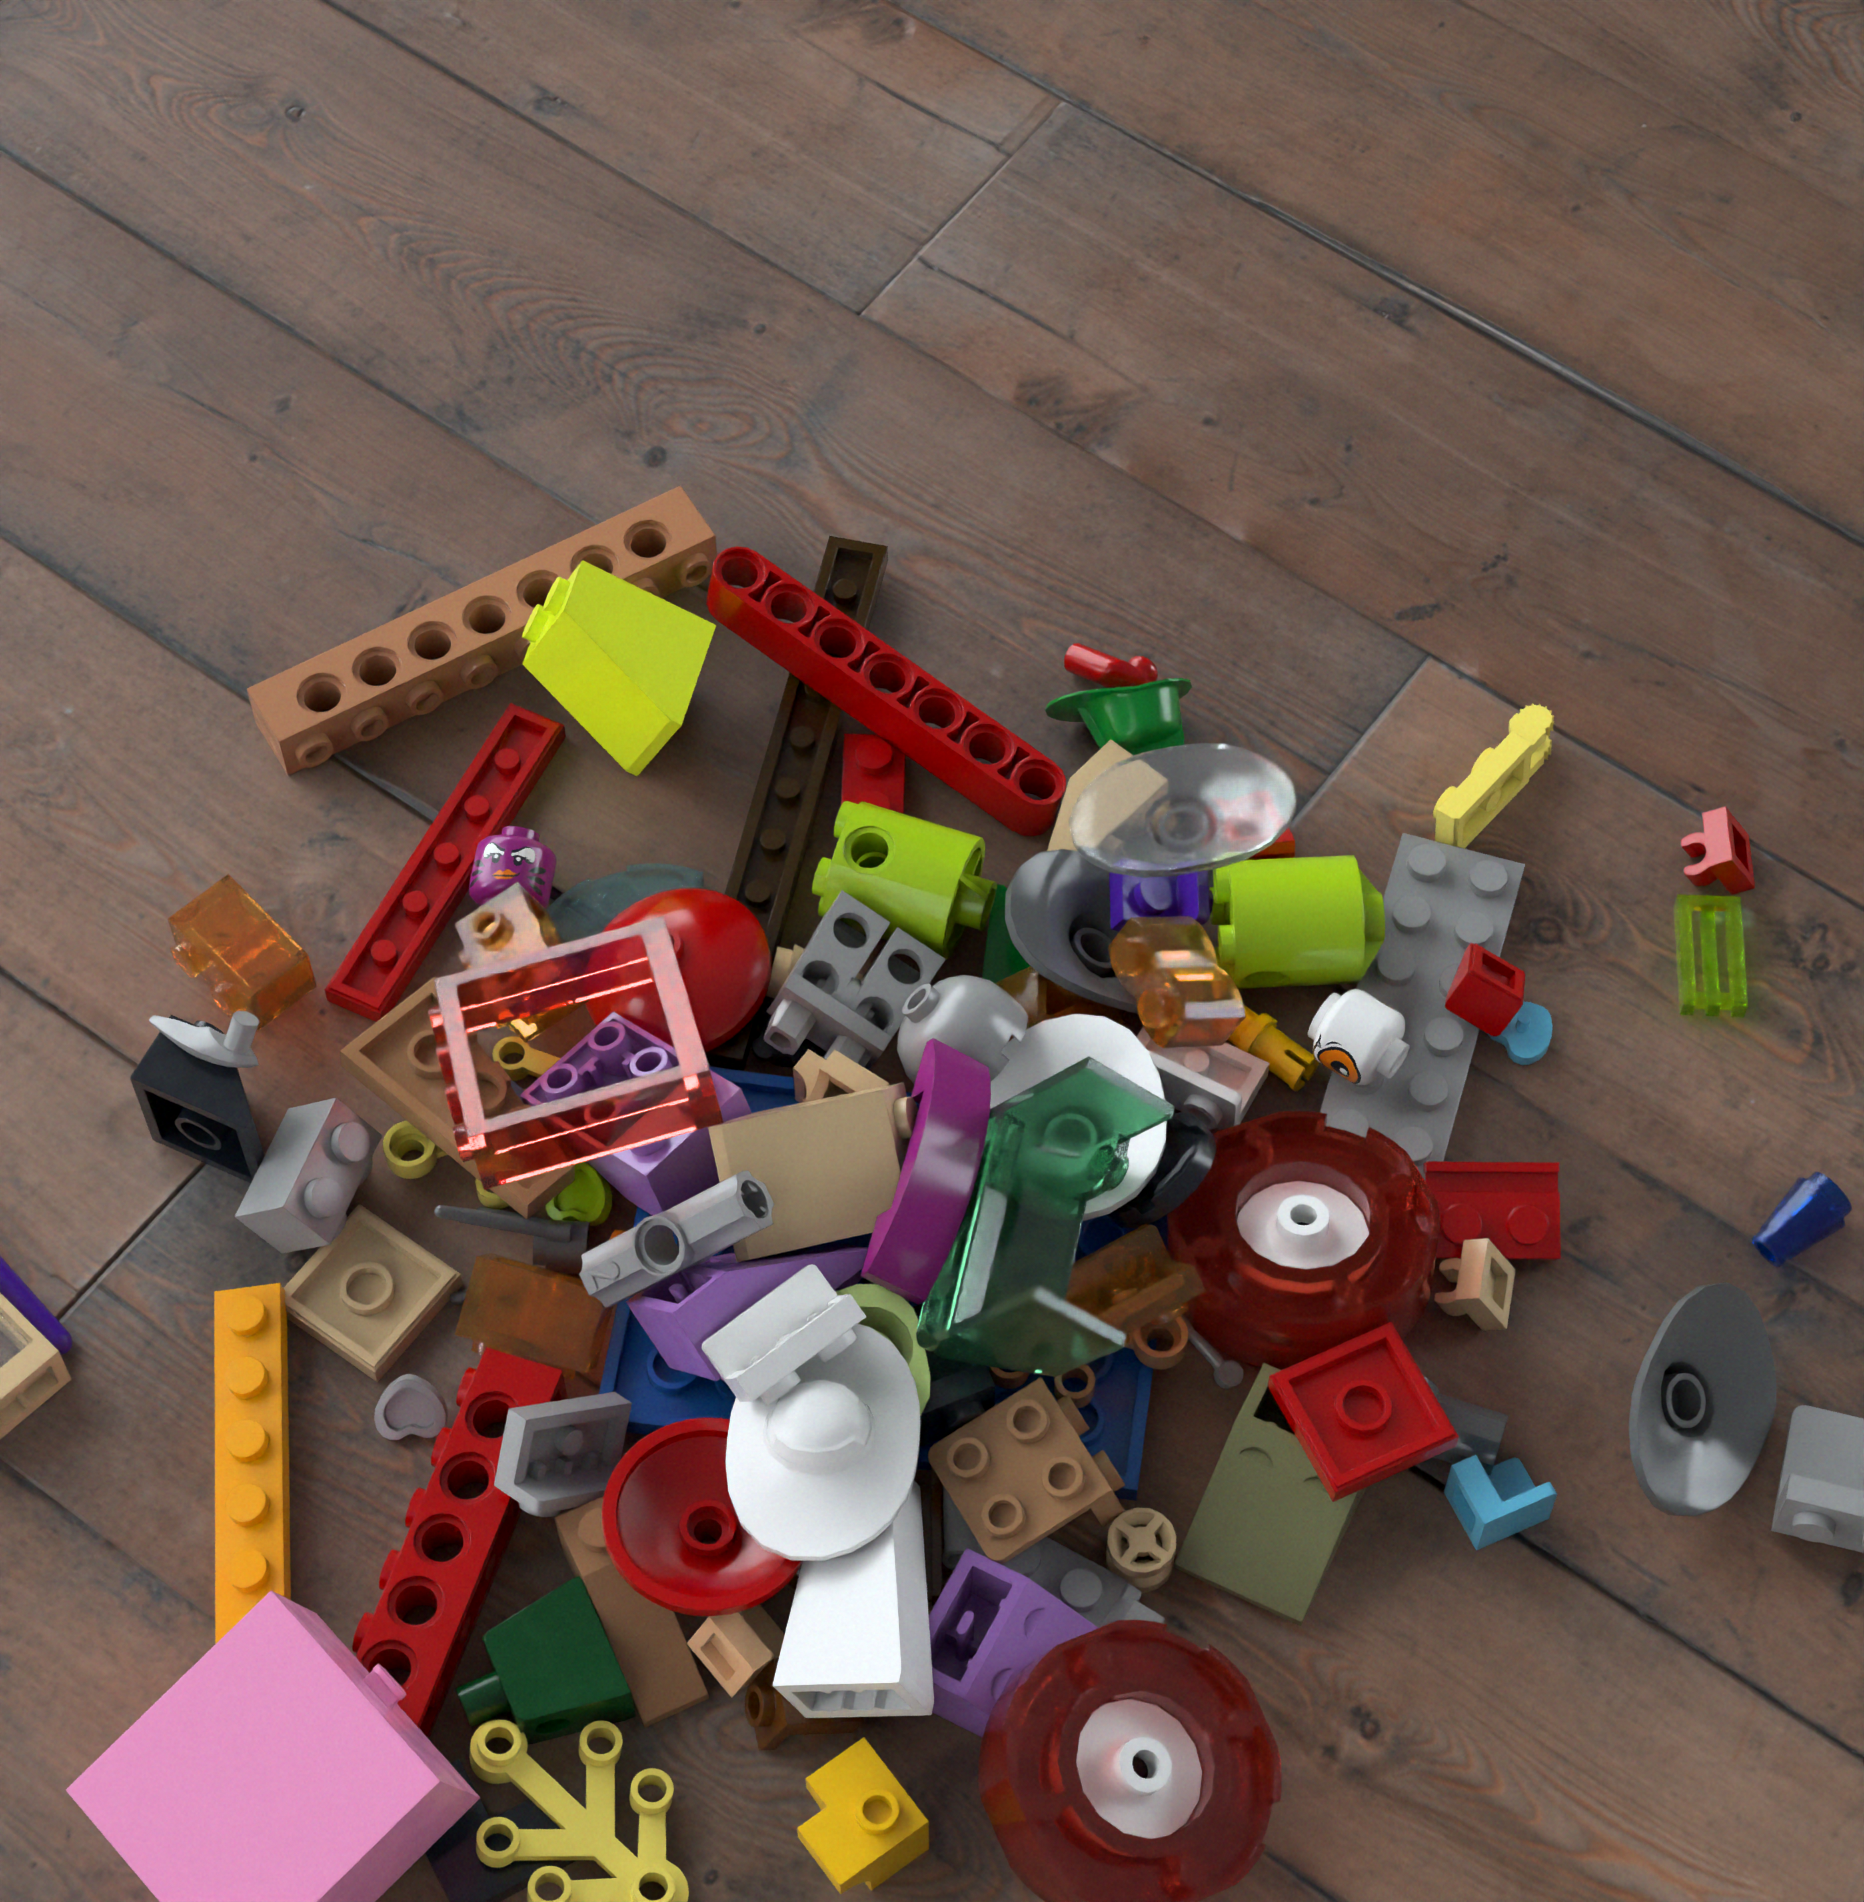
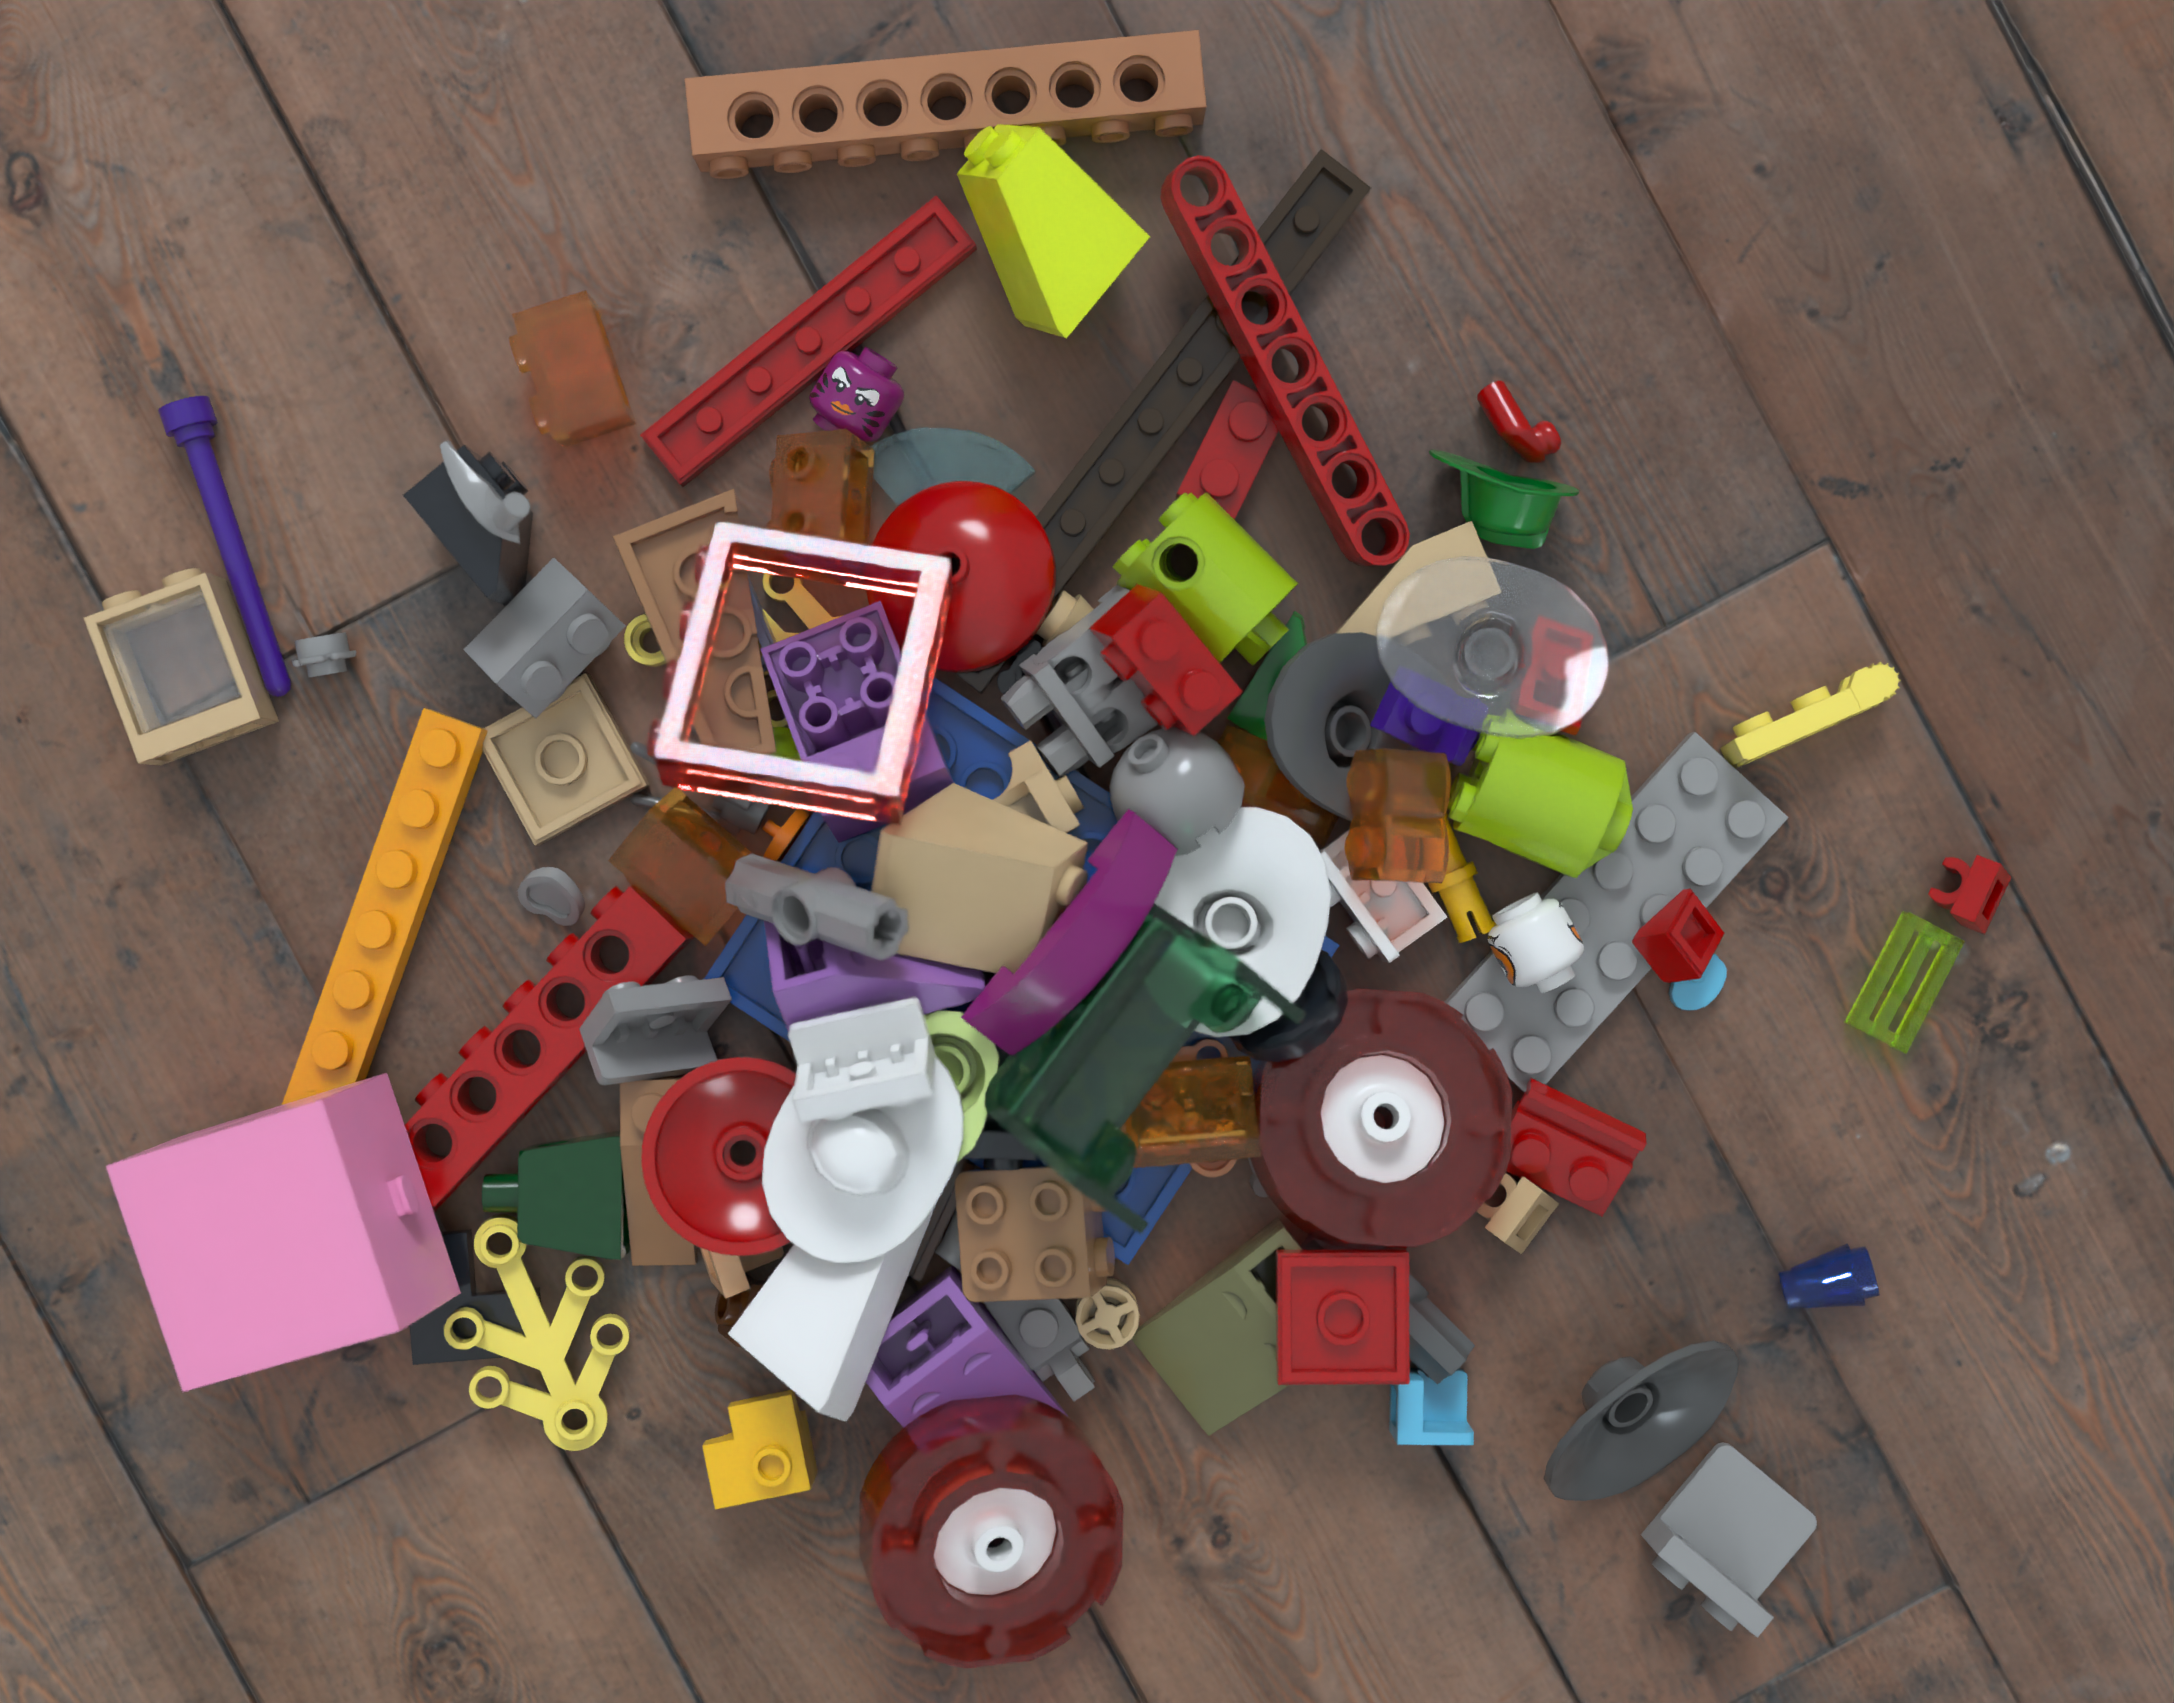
camera: 25 degrees right, 30 degrees up
(95, 1291) = (323, 654): none -> light grey plate
(897, 921) = (1165, 660): none -> red brick

